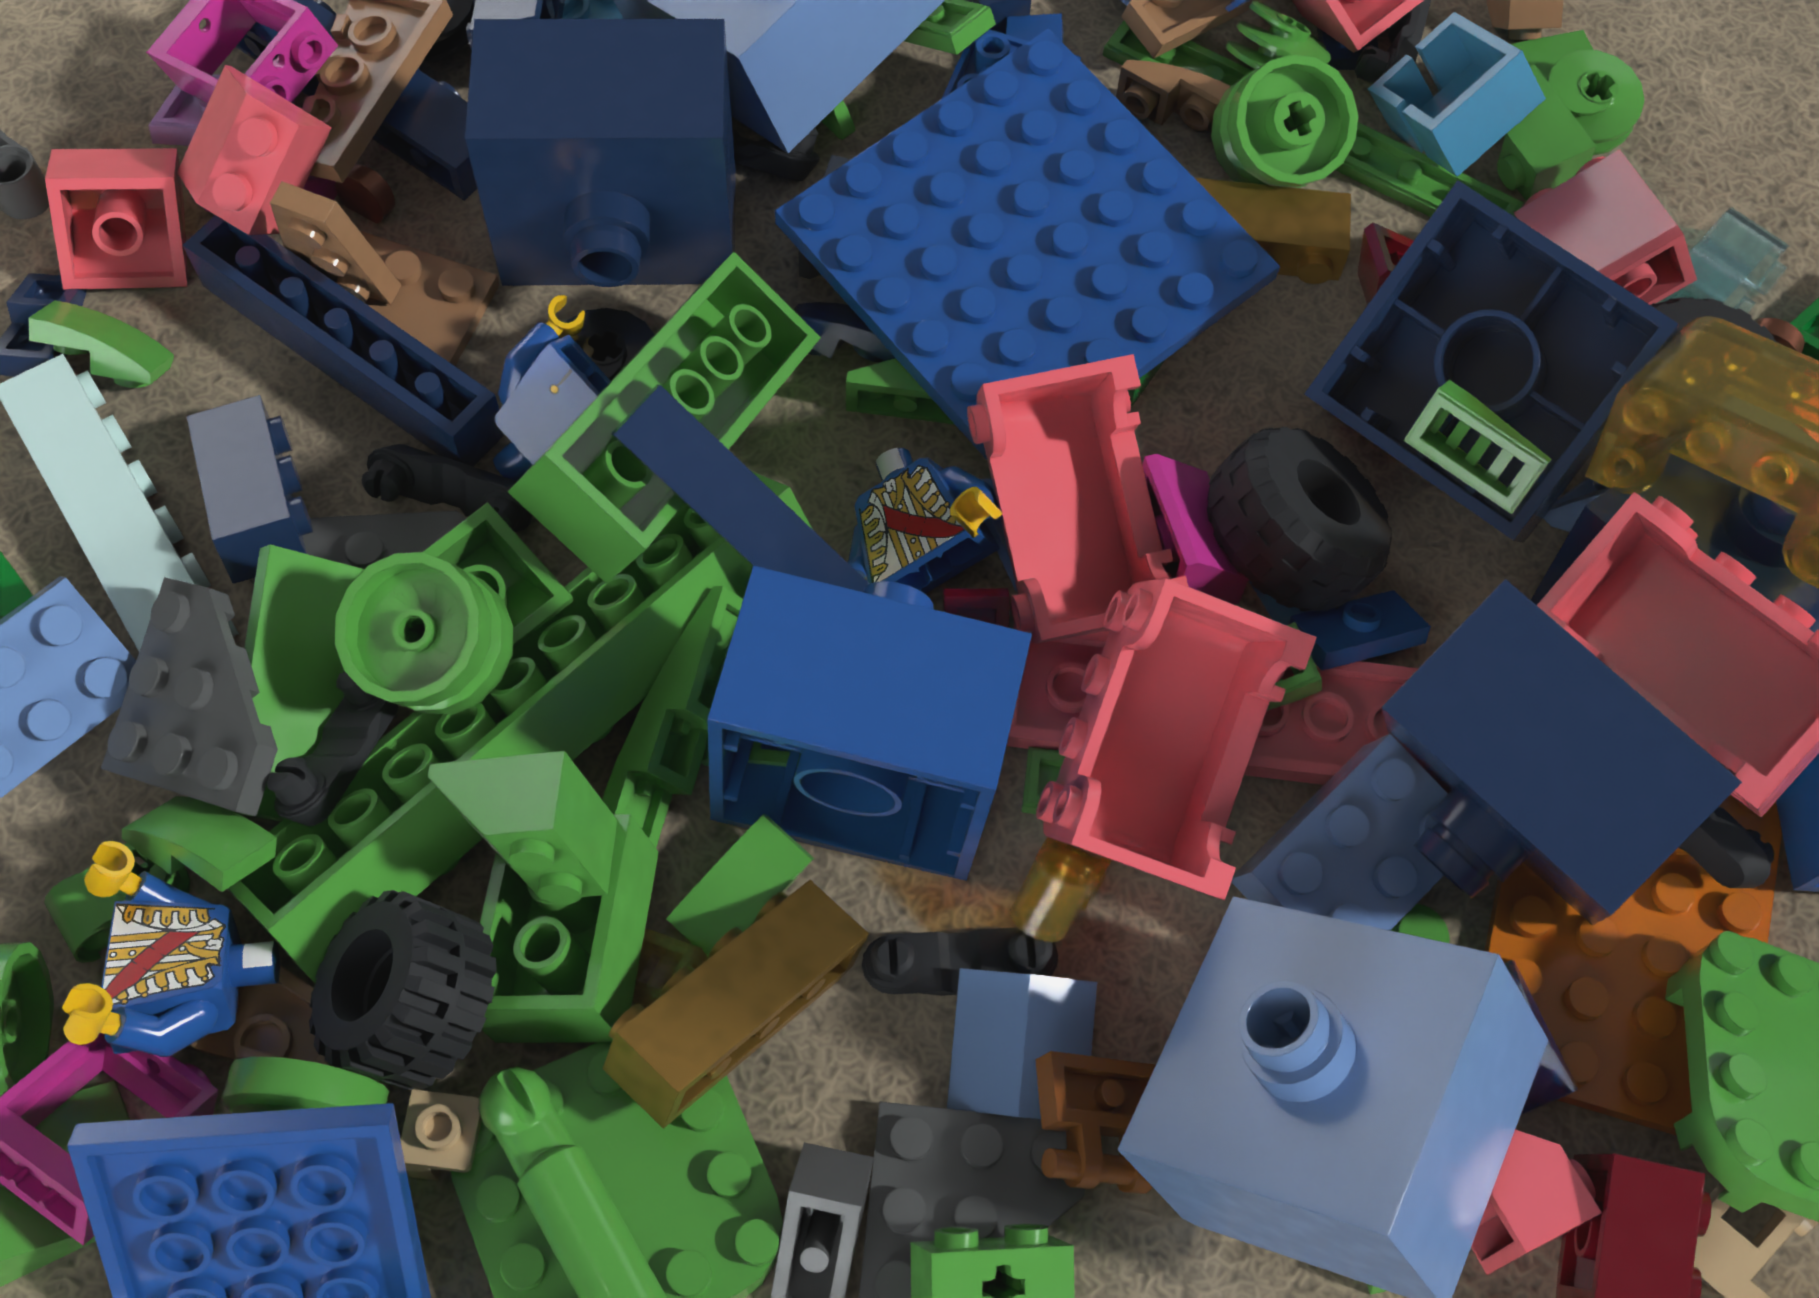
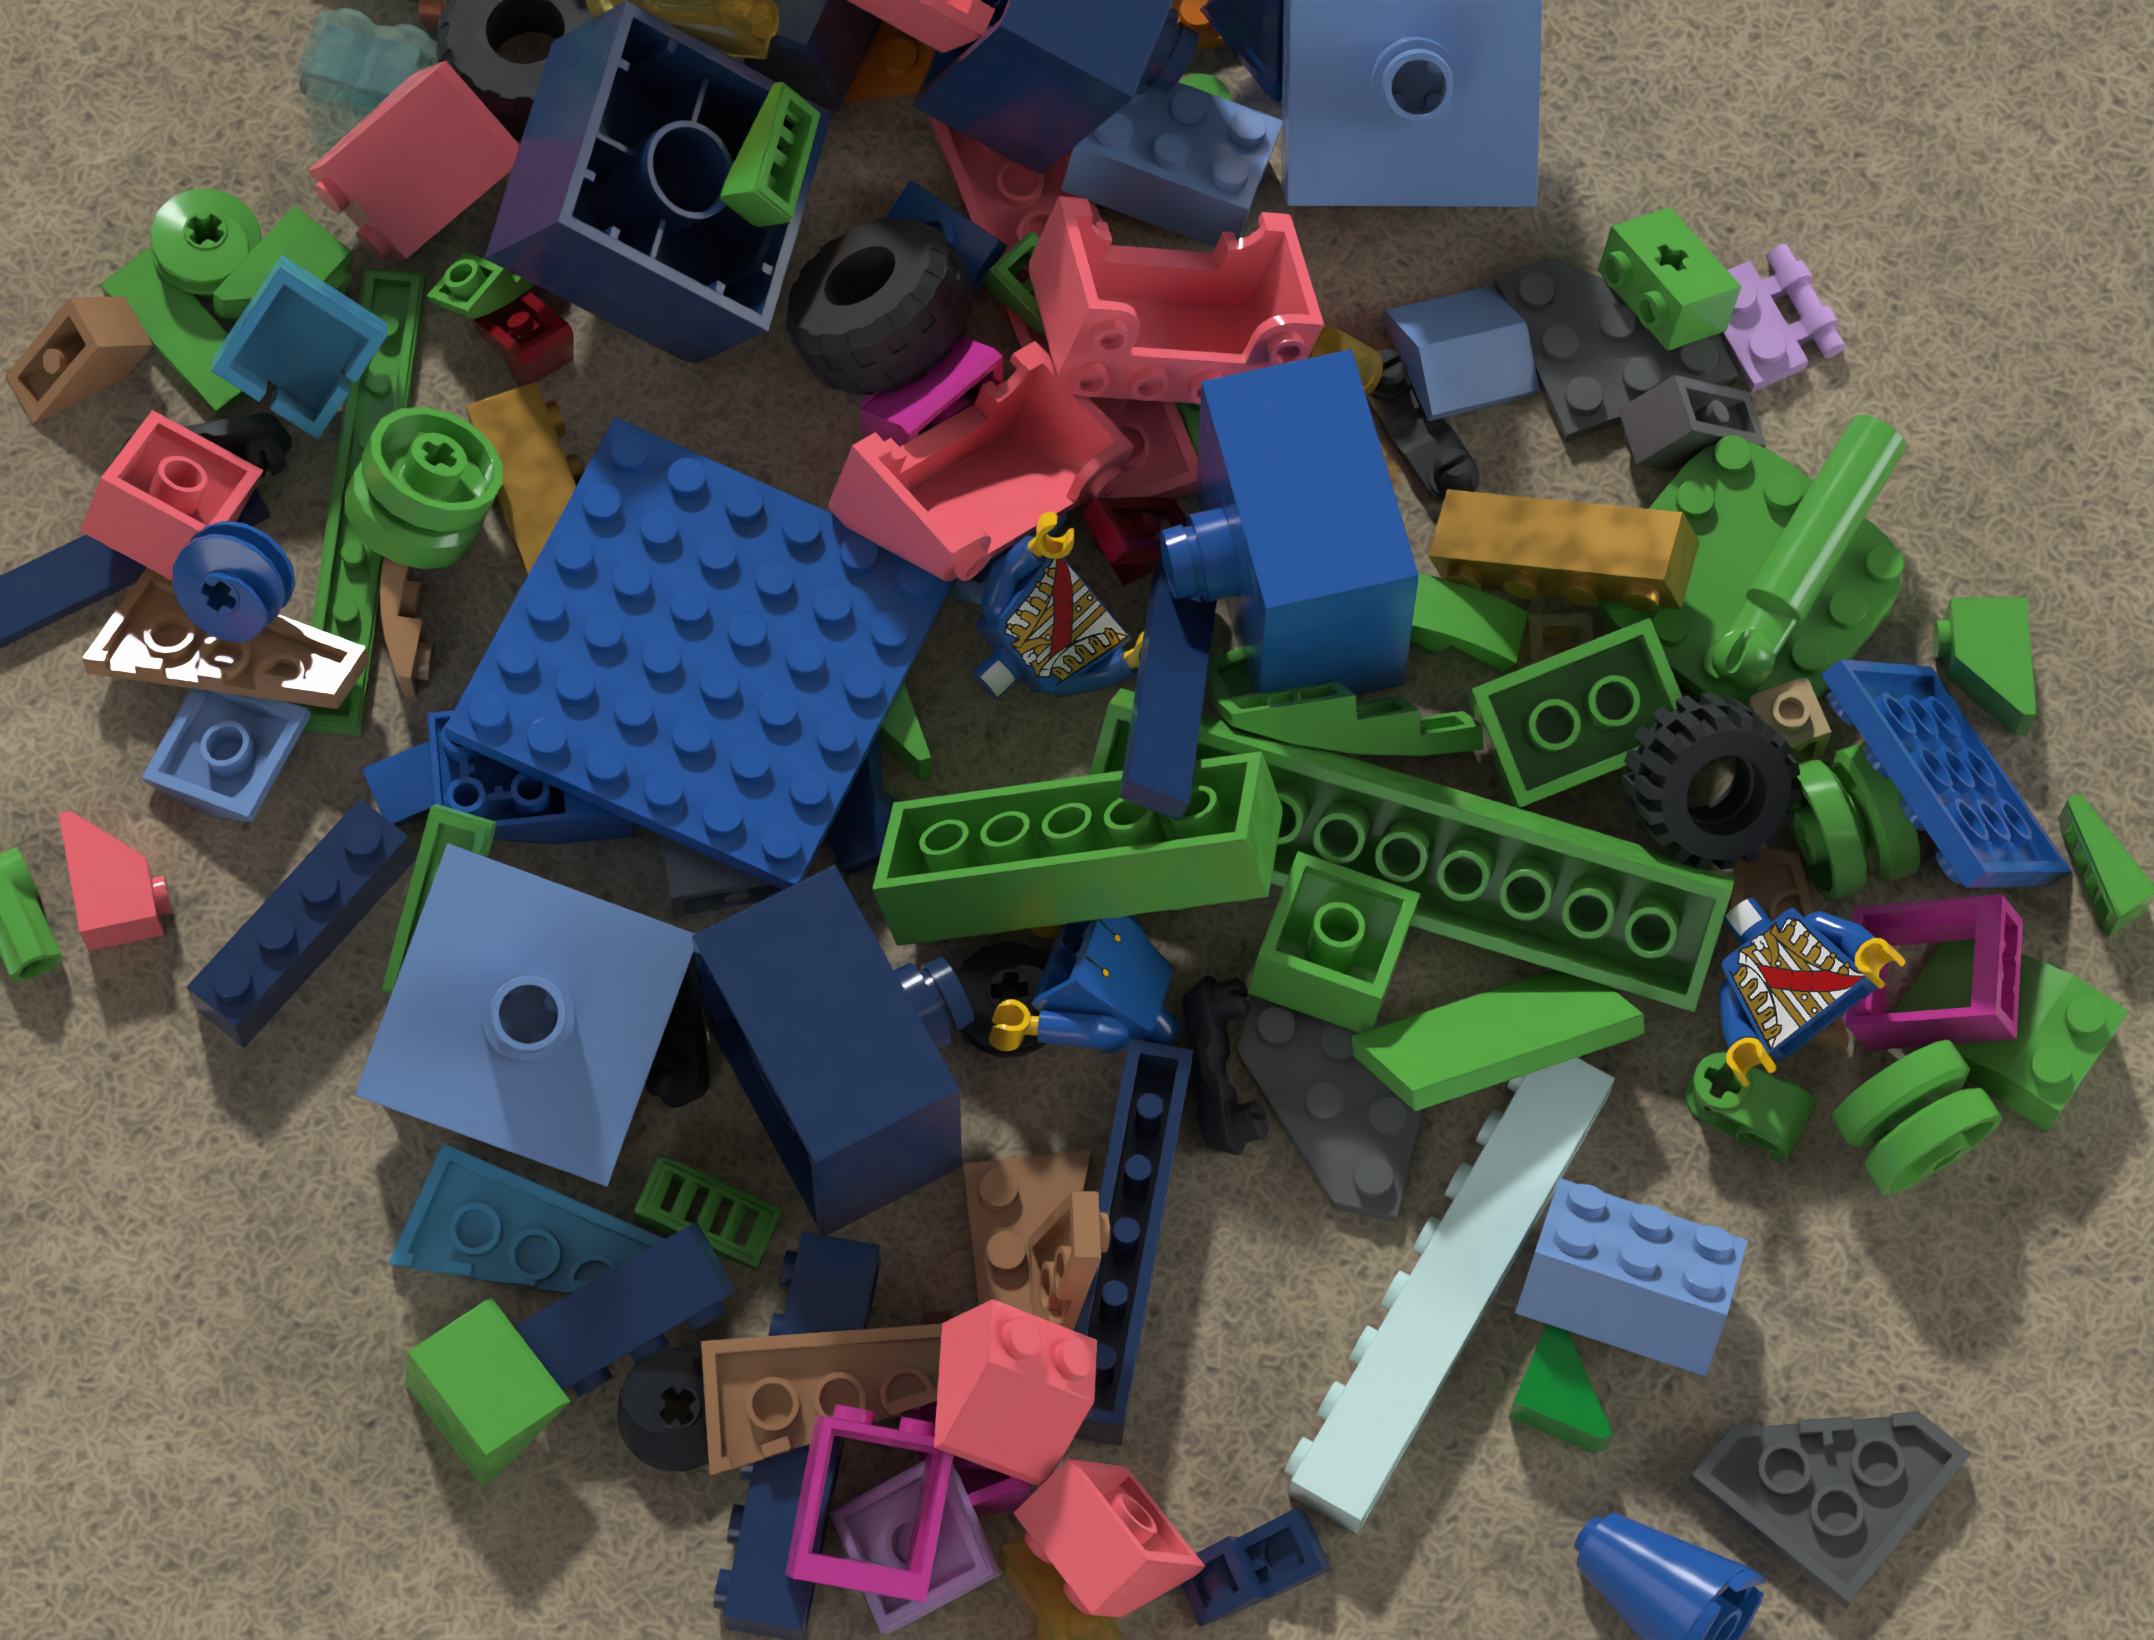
camera: 115 degrees left, 5 degrees up
(114, 346) = (1246, 1474): bright green slope -> none
(191, 706) = (1575, 1096): dark grey plate -> none
(204, 838) = (1678, 1022): bright green slope -> none
(248, 483) = (1328, 1223): brick -> none
(314, 784) = (1536, 969): black piece -> none
(423, 634) = (1424, 908): bright green wheel -> none
(537, 819) = (1543, 726): bright green slope -> none
(1088, 1101) = (1479, 268): dark orange plate -> none
(1283, 39) = (310, 538): bright green piece -> none

